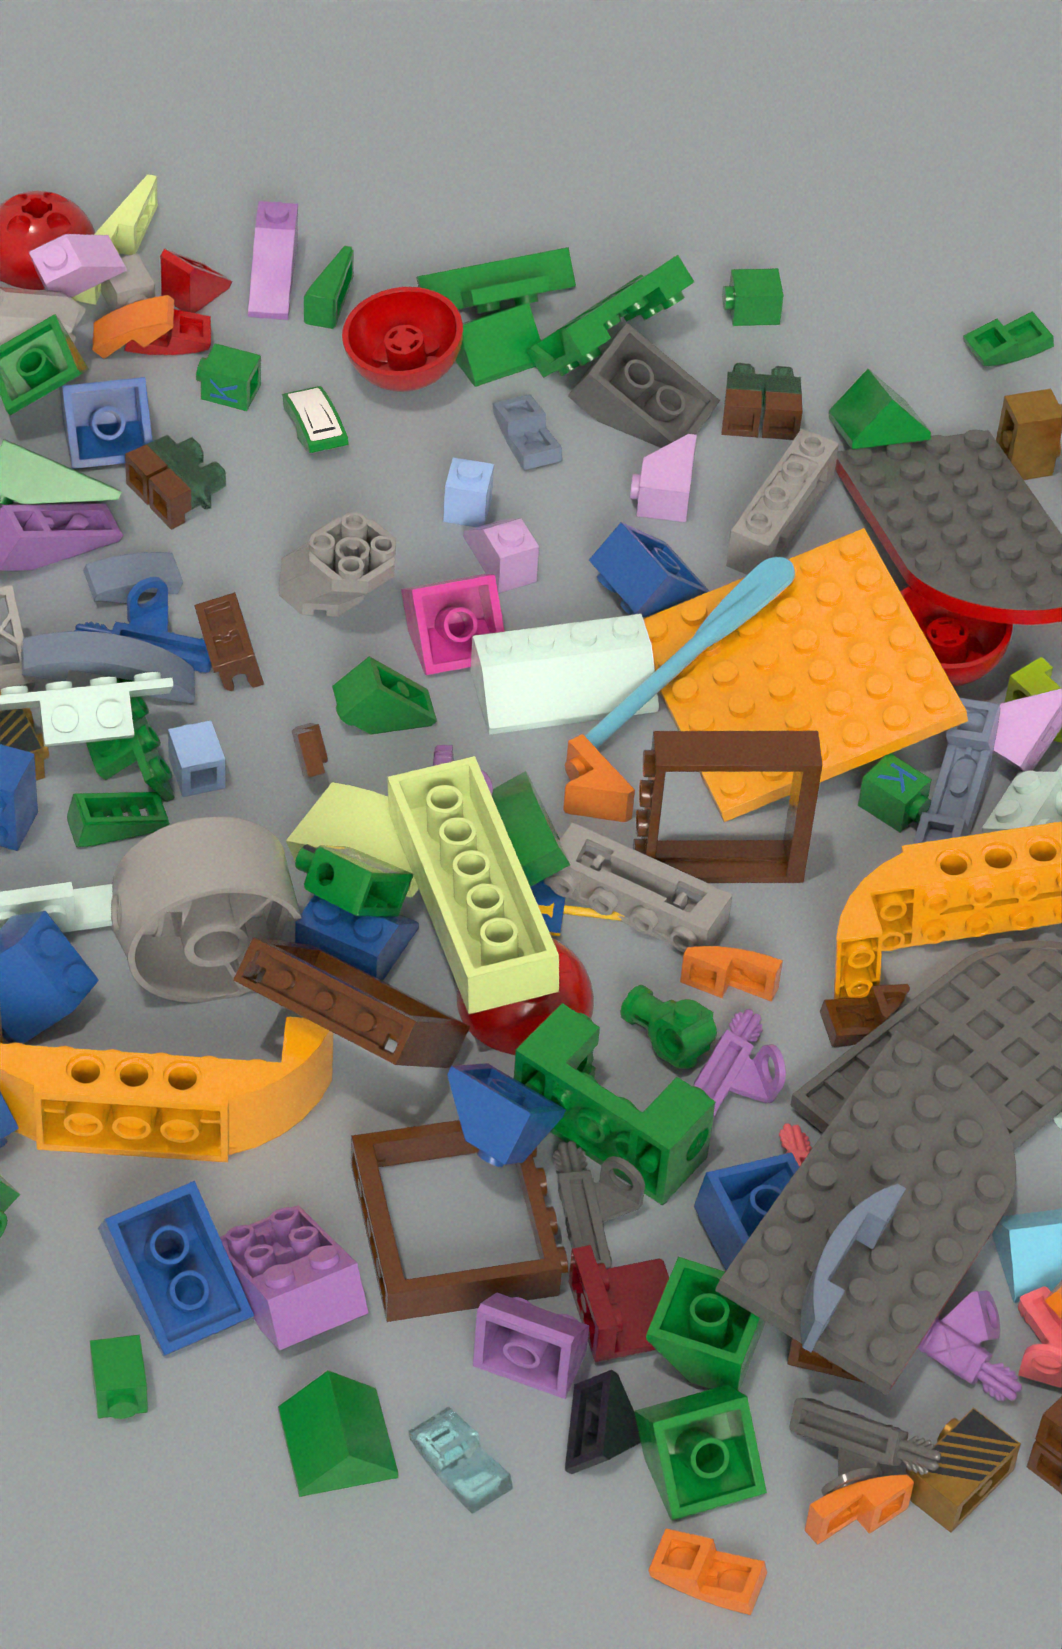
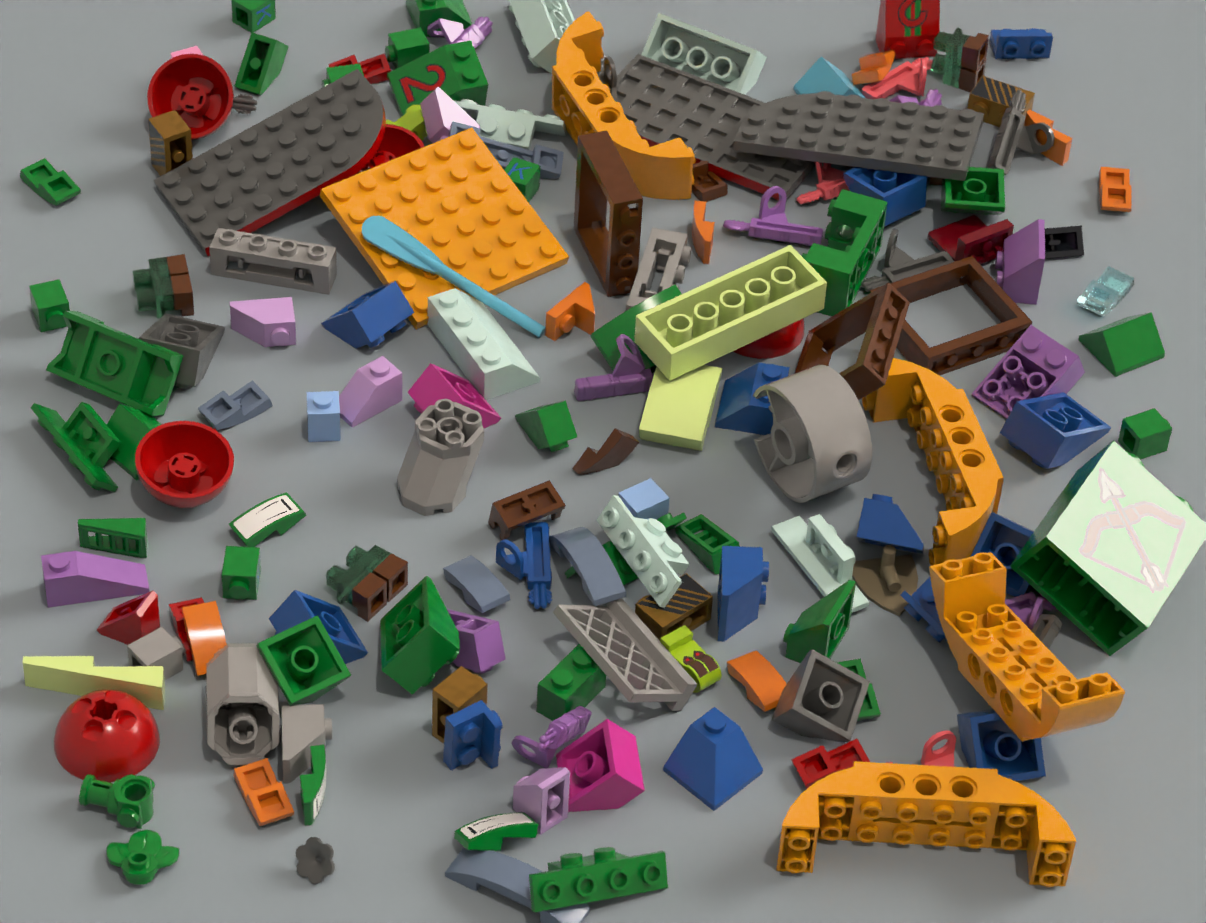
camera: 105 degrees left, 5 degrees down
(76, 263) = (172, 668): lavender slope -> none
(354, 880) = (739, 376): green torso -> none
(500, 1113) = (900, 269): blue slope -> none
(676, 1029) = (761, 240): green connector -> none
(701, 1450) = (1043, 197): green slope -> none
(862, 1224) = (932, 122): sand blue slope -> none
(876, 415) = (169, 228): green slope -> none

